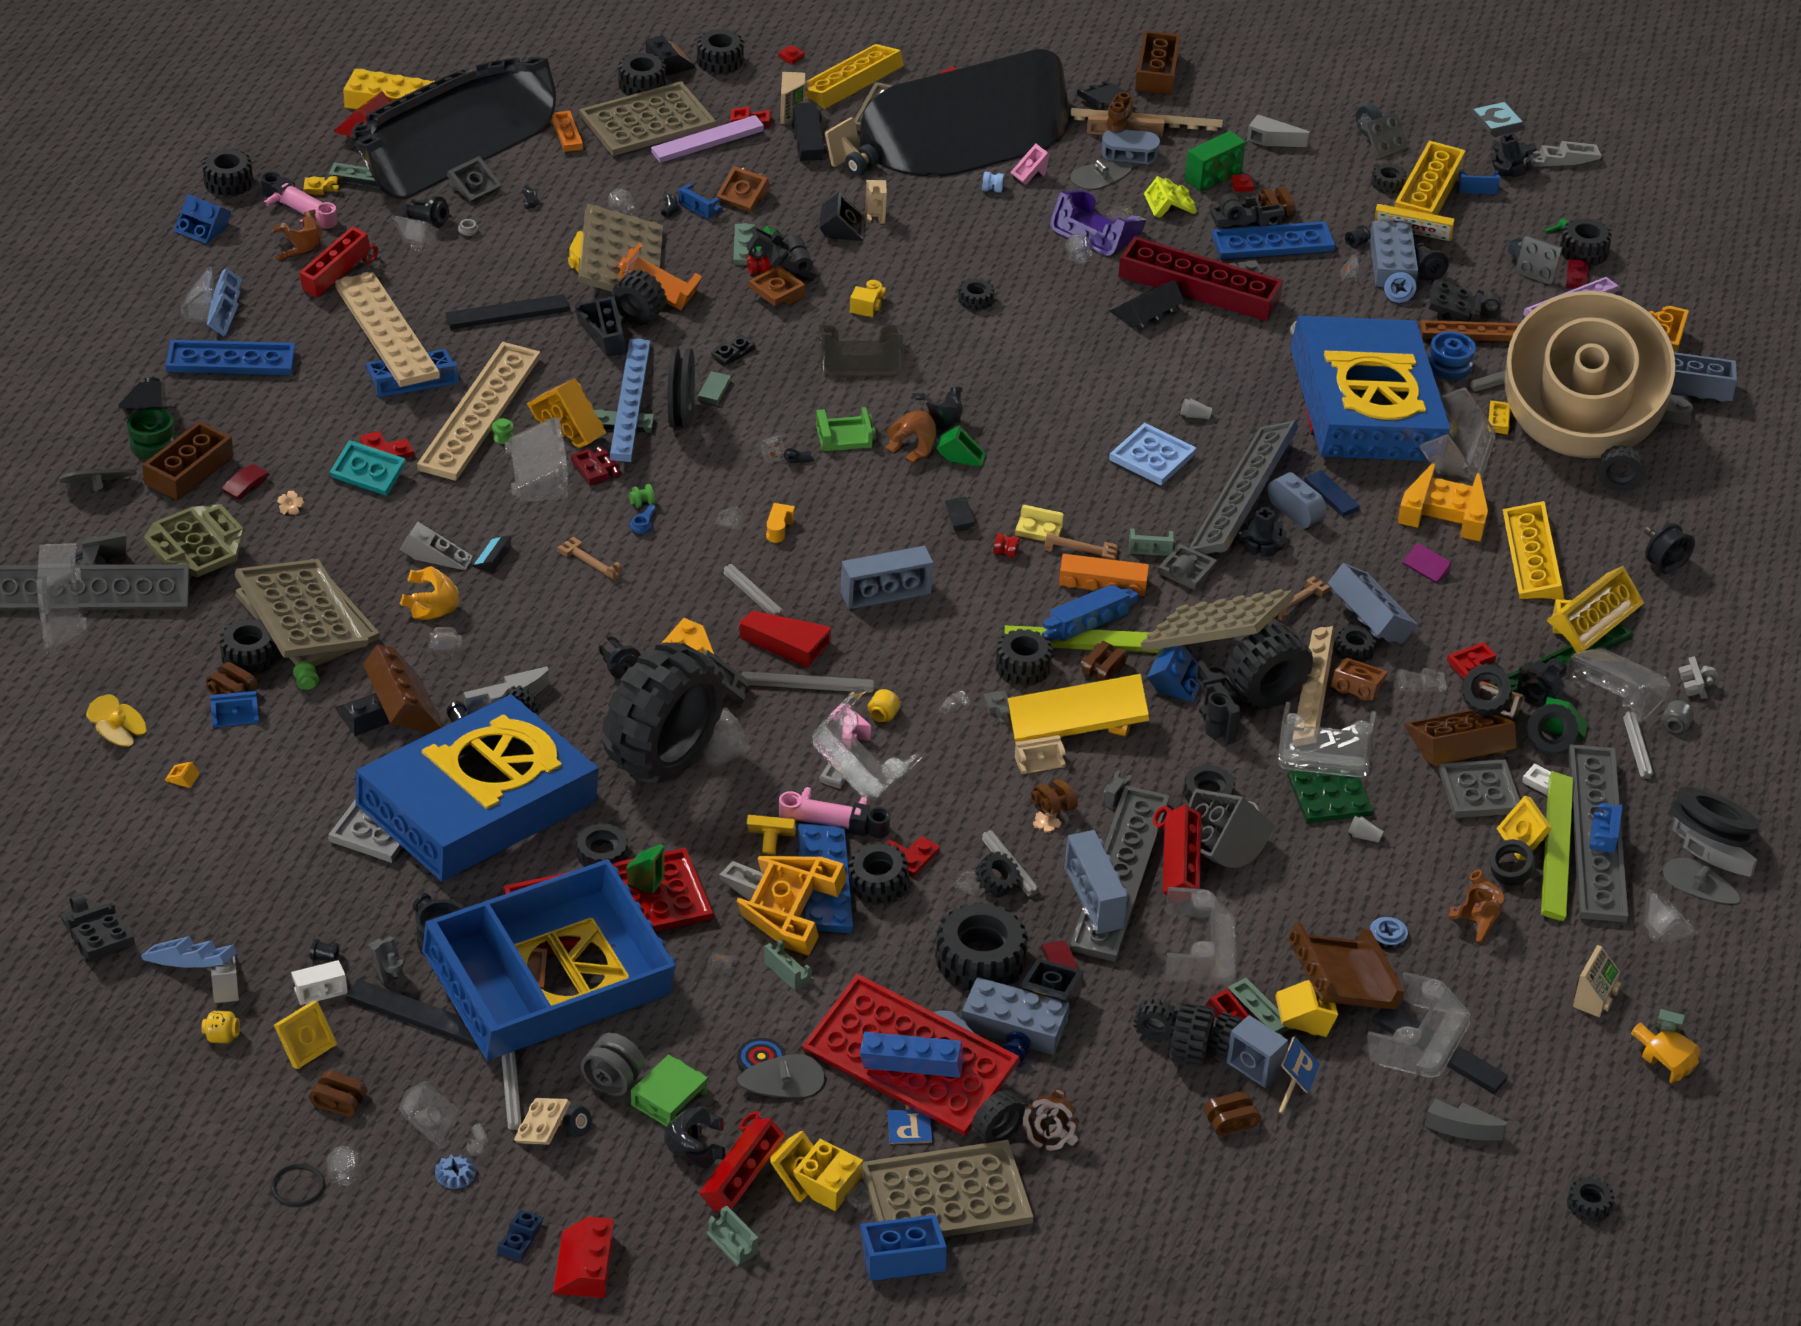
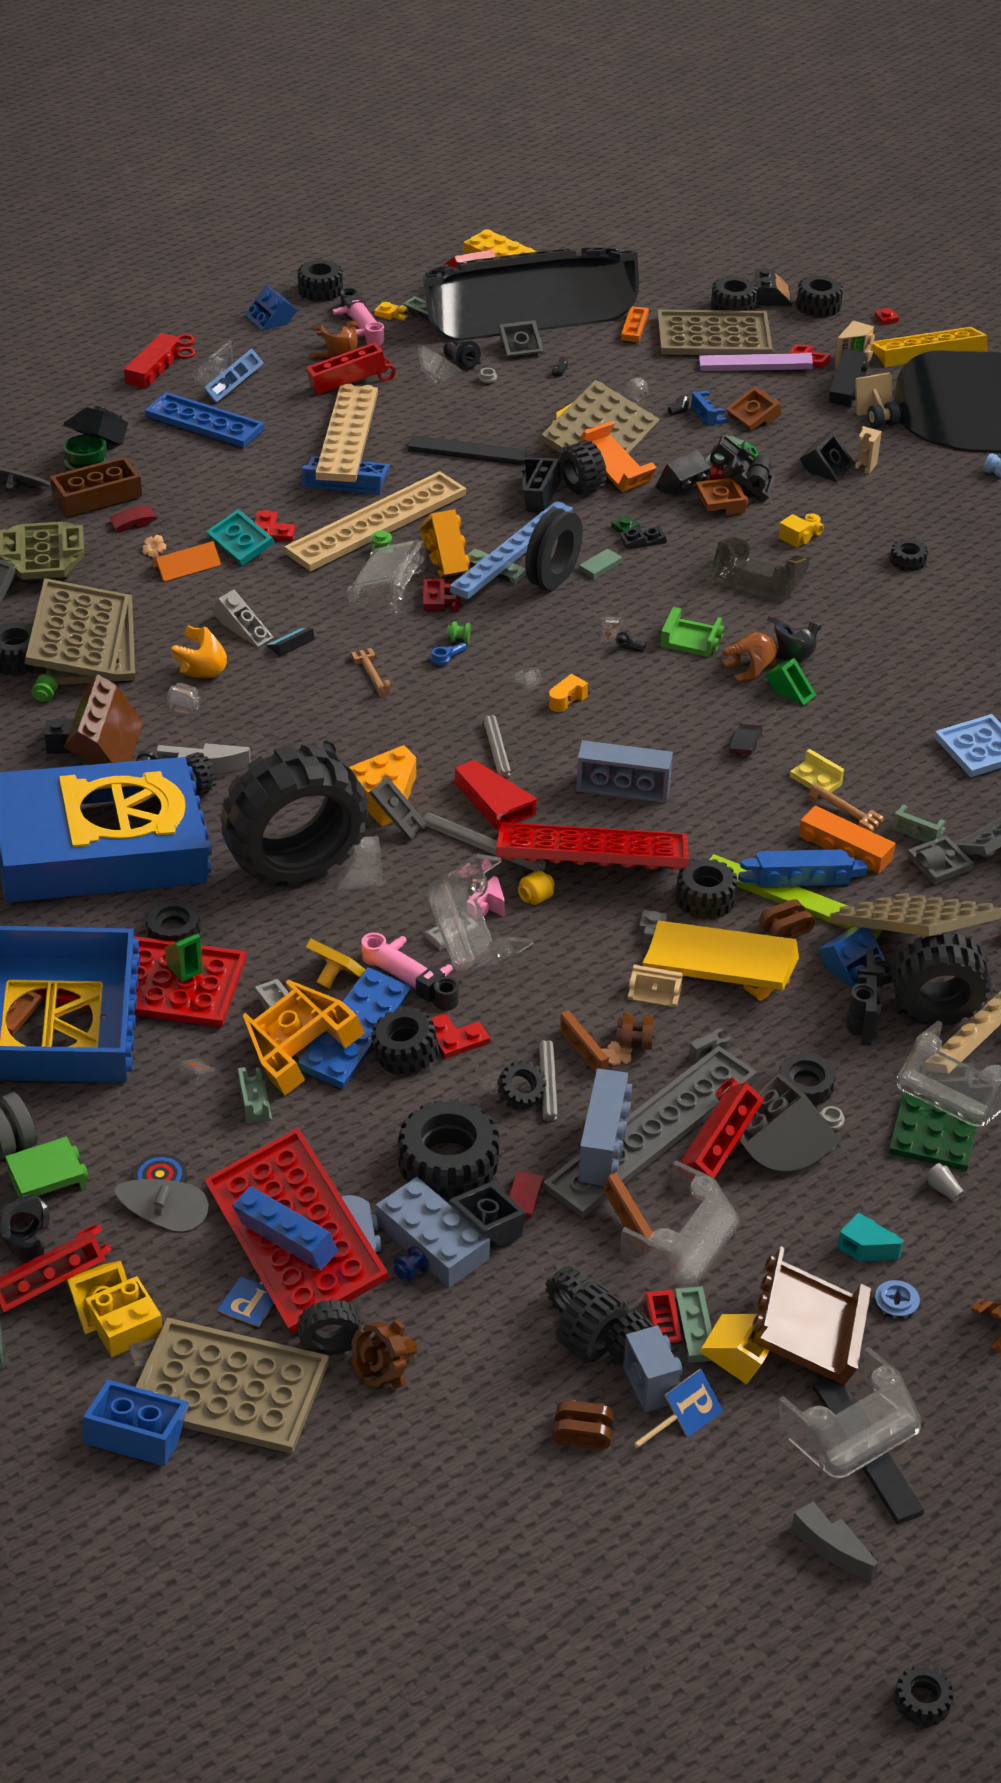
camera: 30 degrees right, 0 degrees up
(131, 306) = (156, 358): none -> red hinge
(334, 508) = (187, 561): none -> orange panel
(708, 342) = (624, 523): none -> dark green plate
(732, 276) = (683, 473): none -> black slope
(909, 652) = (592, 845): none -> red plate
(959, 697) = (607, 906): clear arm -> none
(1006, 545) = (769, 781): red wheel -> none
(1019, 823) = (583, 1042): none -> dark orange tile
(1149, 938) = (625, 1206): none -> dark orange tile
(1342, 895) = (869, 1241): none -> teal slope

